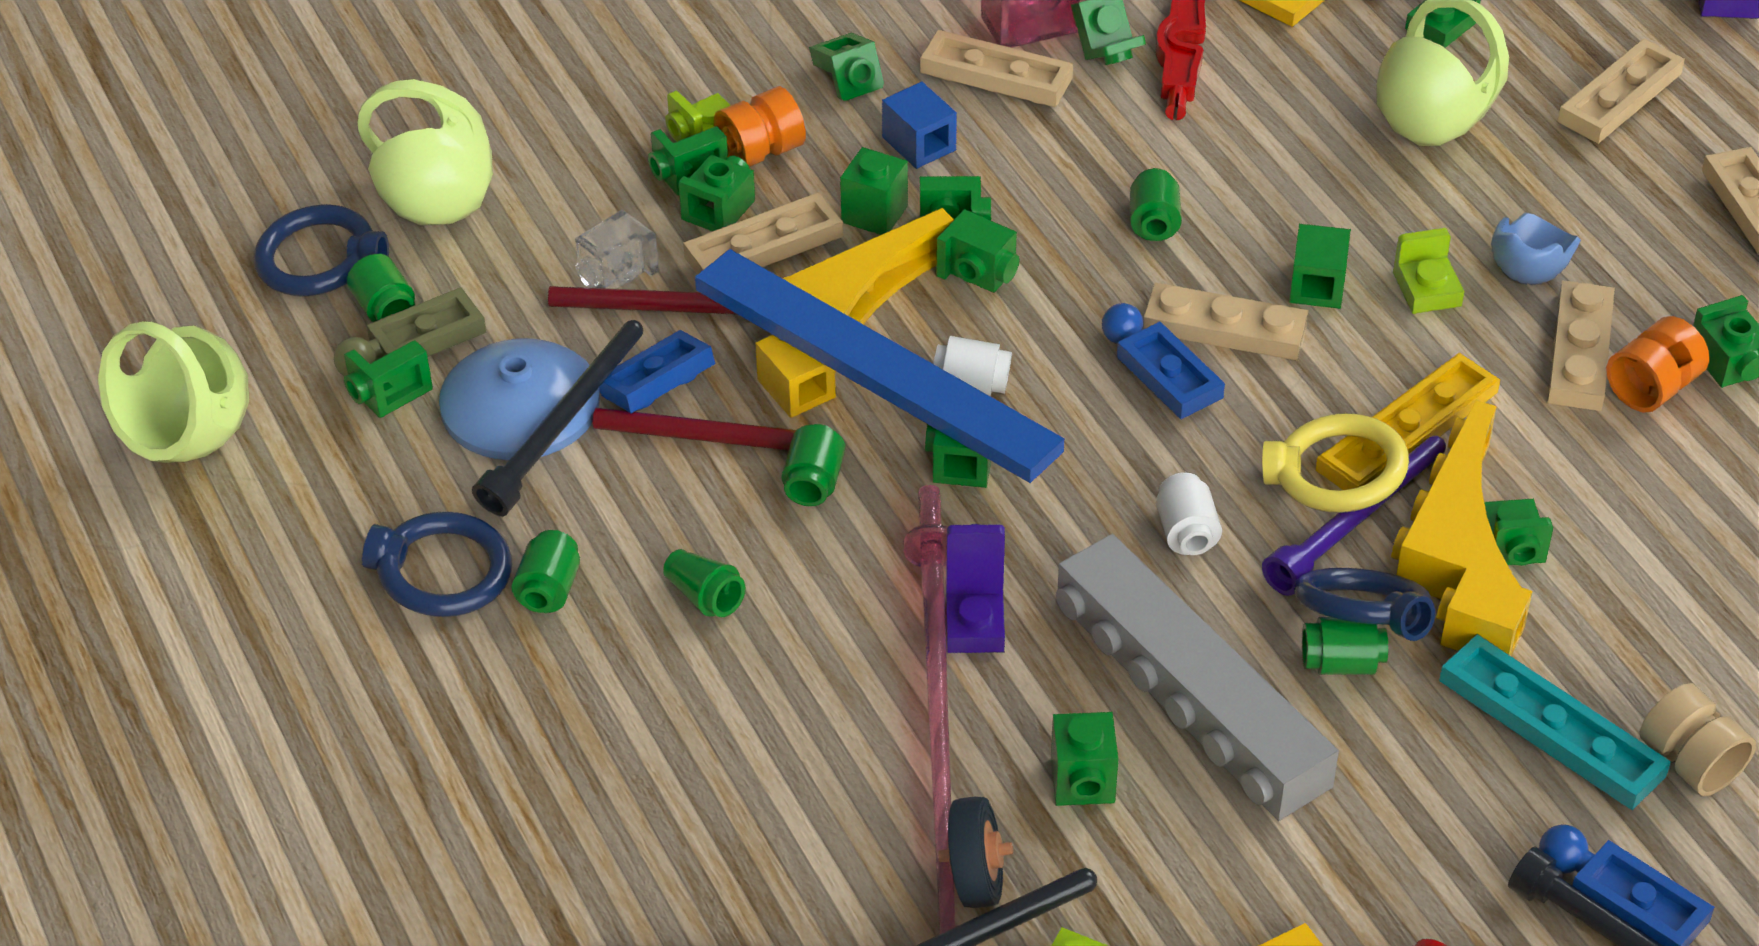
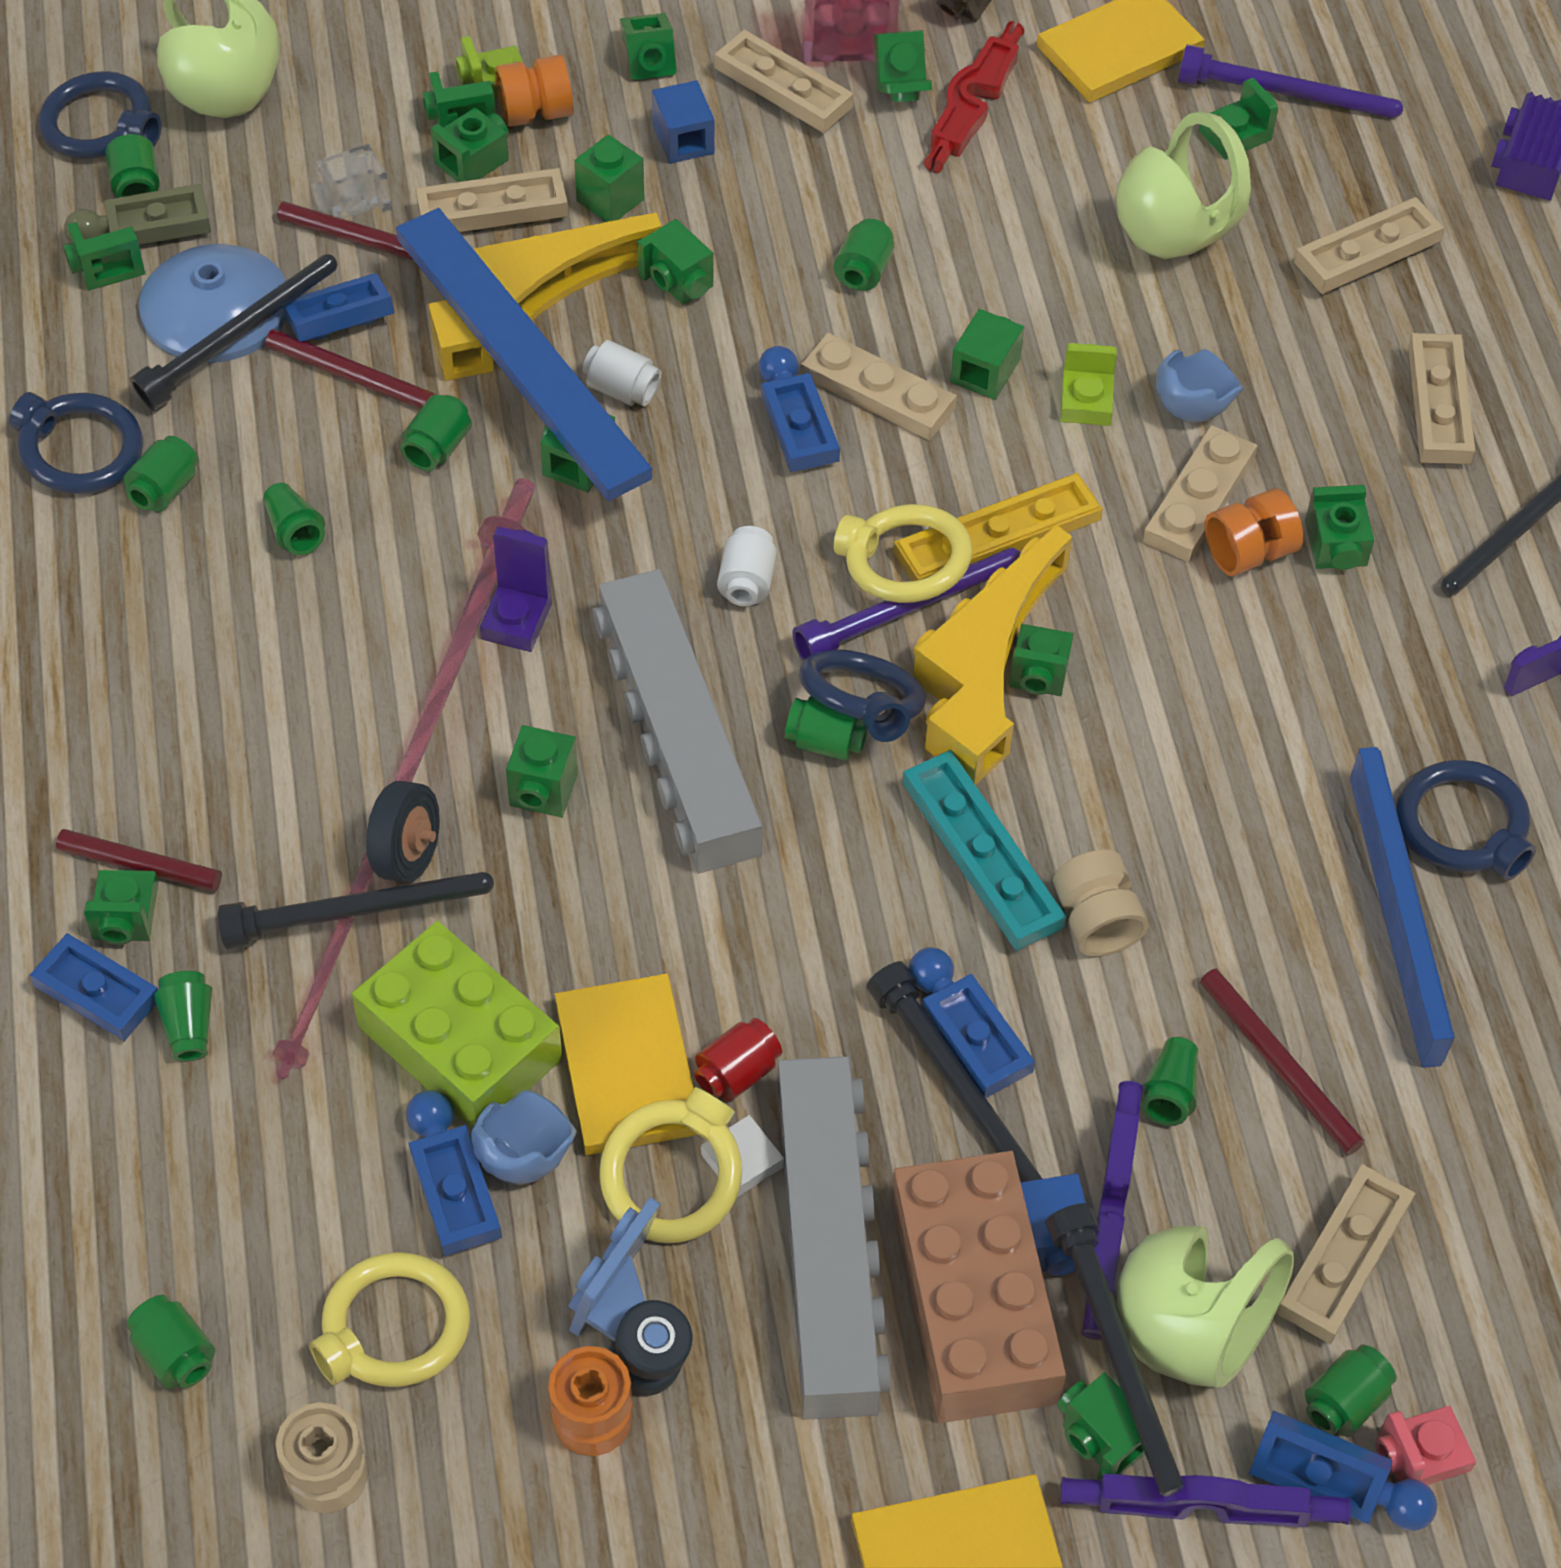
camera: 15 degrees right, 10 degrees up
(953, 195) = (679, 202): green bracket -> none

